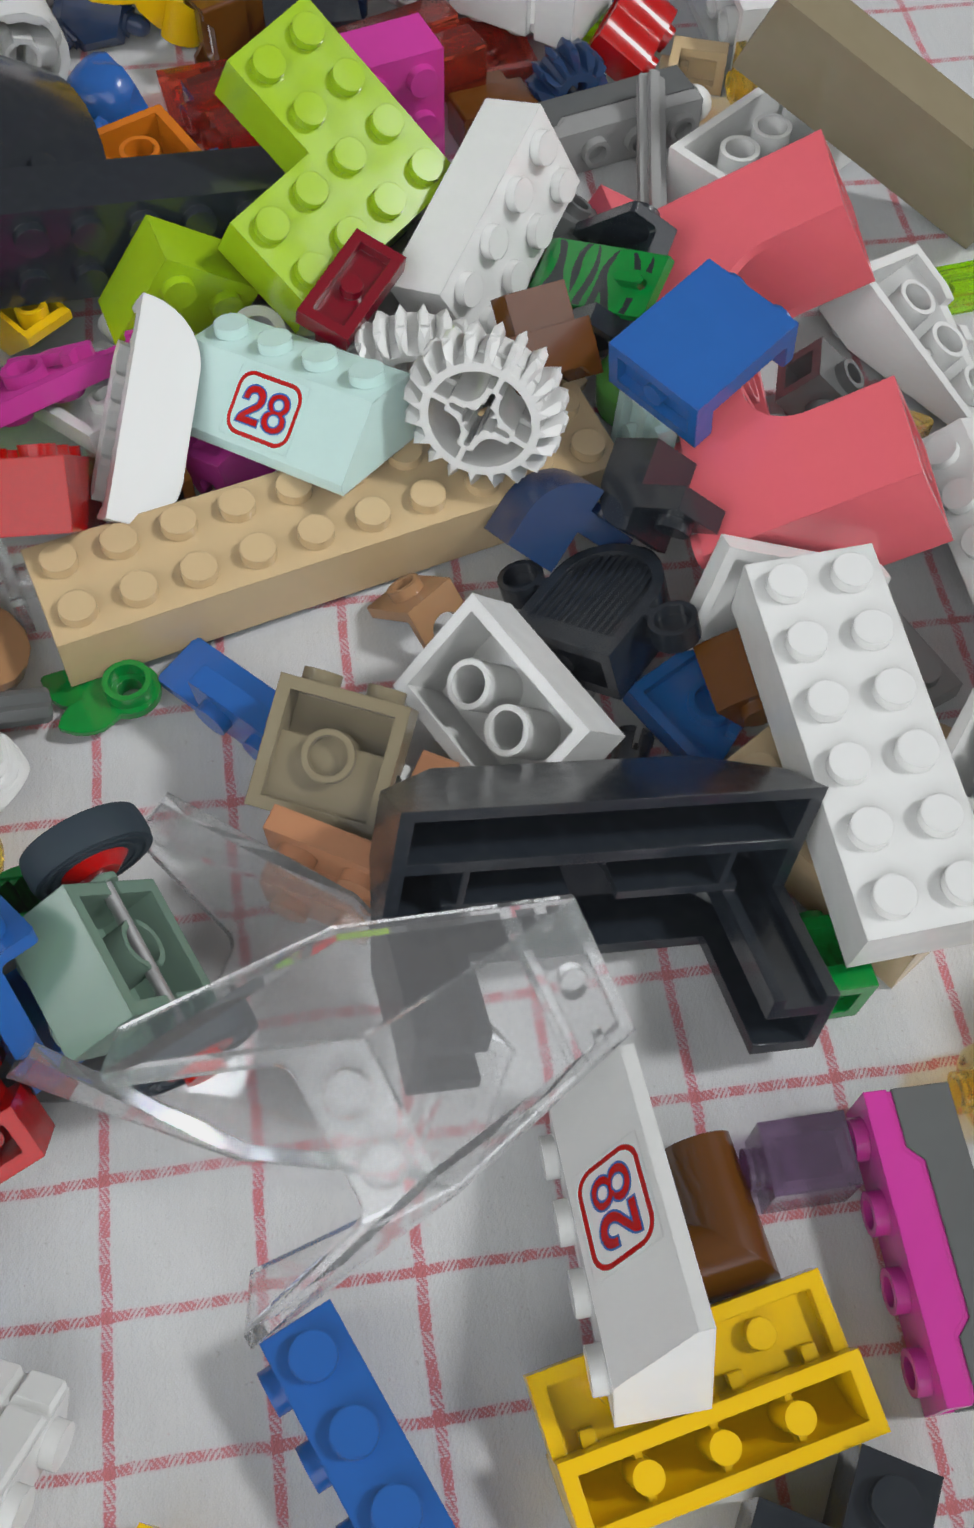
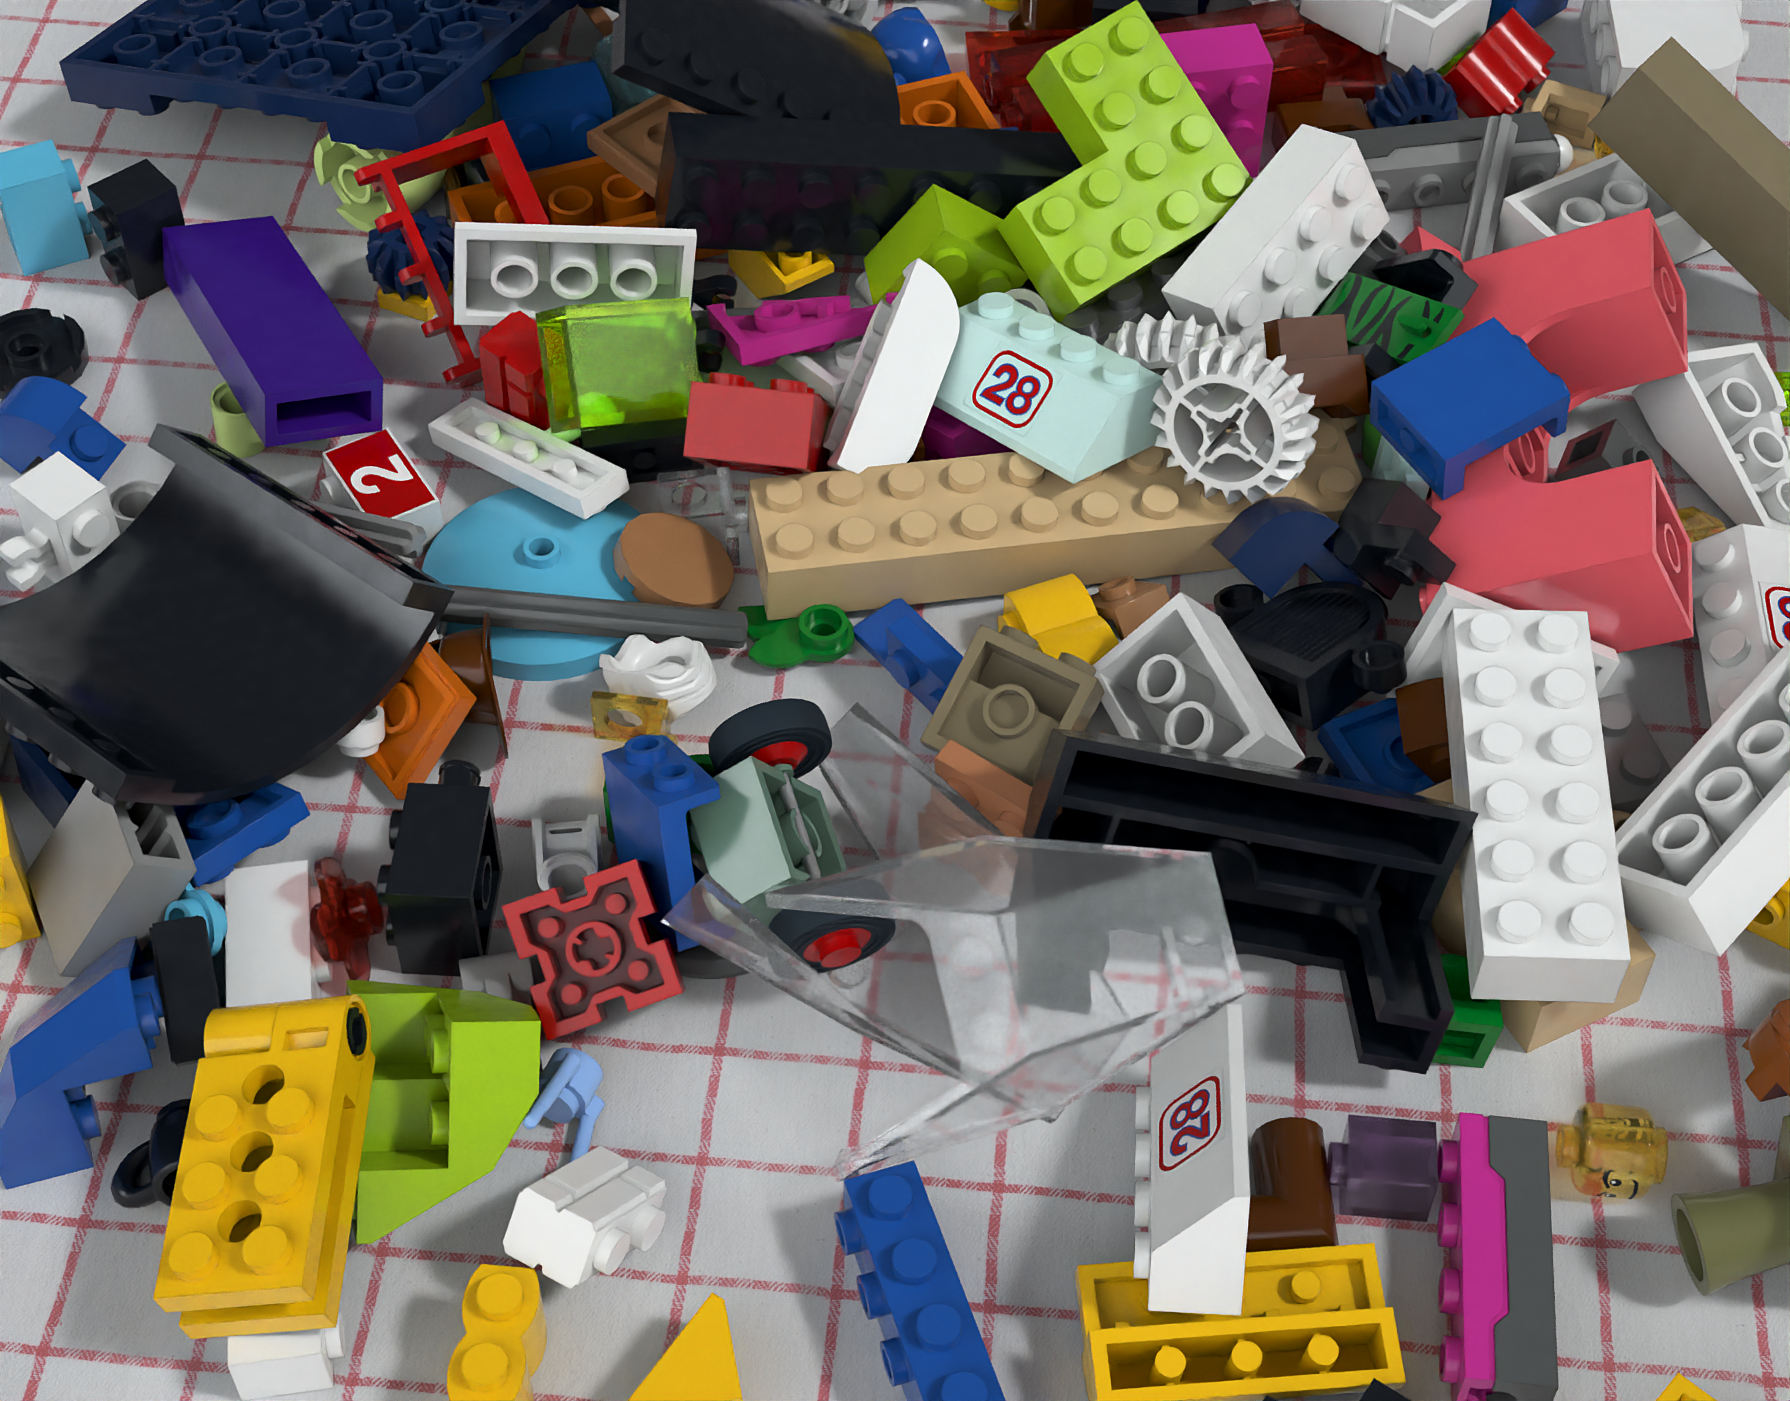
camera: 15 degrees right, 10 degrees down
(350, 290) = (1123, 289): dark red hinge -> none
(356, 640) = (1059, 619): none -> yellow brick

